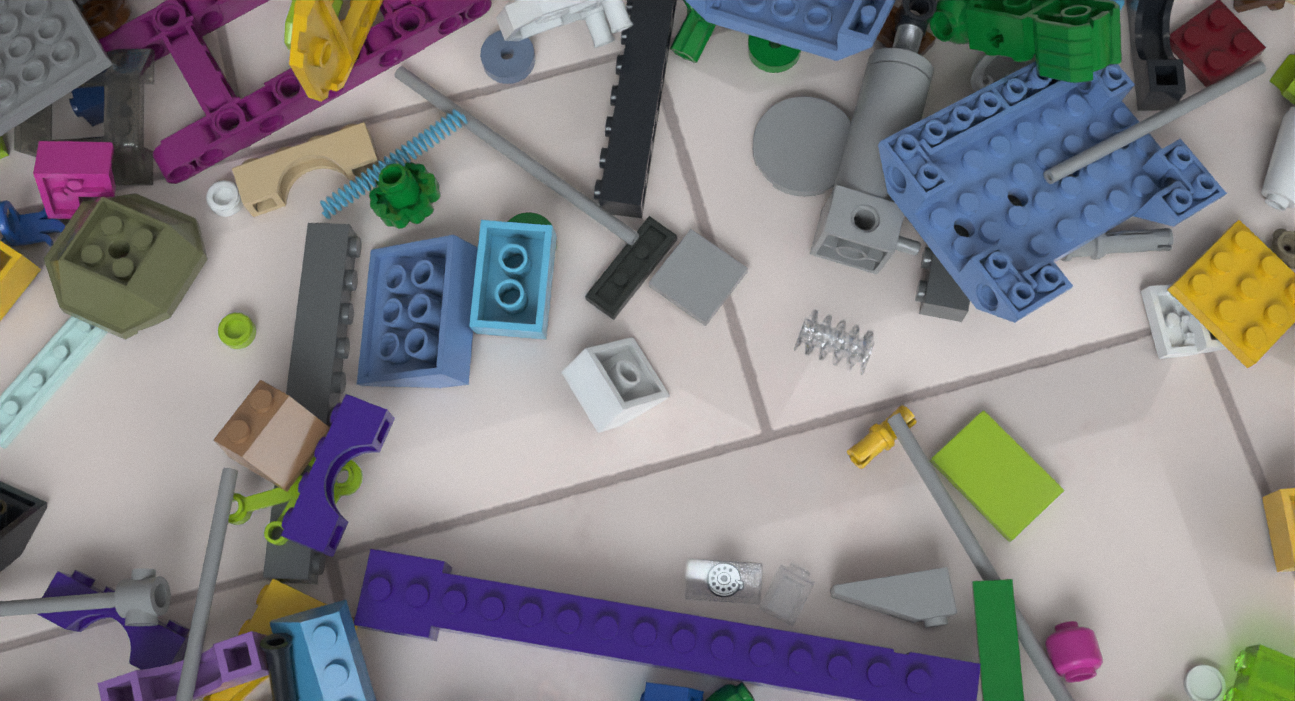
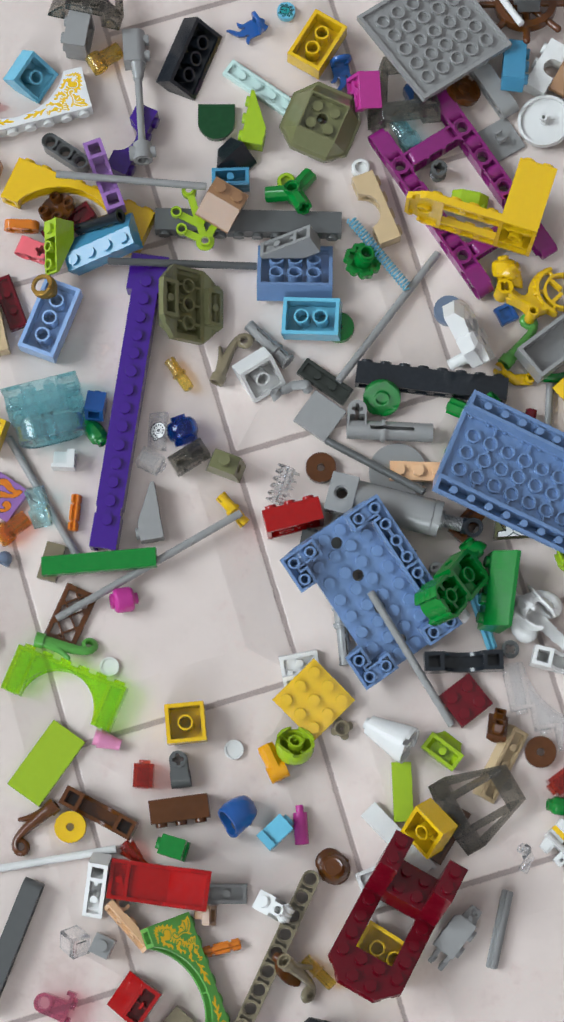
camera: 85 degrees right, 5 degrees up
(95, 460) = (216, 120): none -> dark green tile
(120, 383) = (254, 128): none -> lime slope
(172, 422) = (234, 154): none -> black slope
(176, 113) = (406, 136): none -> clear light blue piece
(213, 412) = (235, 176): none -> dark azure brick
(245, 61) = (438, 164): none -> dark grey bush
(260, 310) = (293, 192): none -> green piece
(354, 431) = (180, 229): dark purple arch -> none
(364, 314) = (294, 244): none -> light grey slope
(384, 533) = (187, 263): none -> dark grey piece
(474, 509) = (189, 305): none -> olive piece
(552, 367) = (273, 348): none -> light grey pin
(580, 448) = (219, 375): none -> dark tan plant
(609, 536) = (179, 374): none -> clear yellow axle
(638, 324) = (303, 385): none -> light grey arm
(669, 162) = (382, 397): none -> green tile
(725, 194) = (383, 429): none -> light grey piece
(728, 528) = (182, 430): none -> clear blue piece
(782, 515) = (189, 457): none -> clear smoke brick
(796, 449) = (226, 465): none -> olive torso
(800, 174) = (376, 466): none -> dark grey piece
(800, 262) = (320, 459): none -> reddish brown piece
(807, 107) = (415, 470): none -> light nougat plate
(902, 319) = (292, 516): none -> red brick
(996, 476) = (213, 568): lime tile -> none

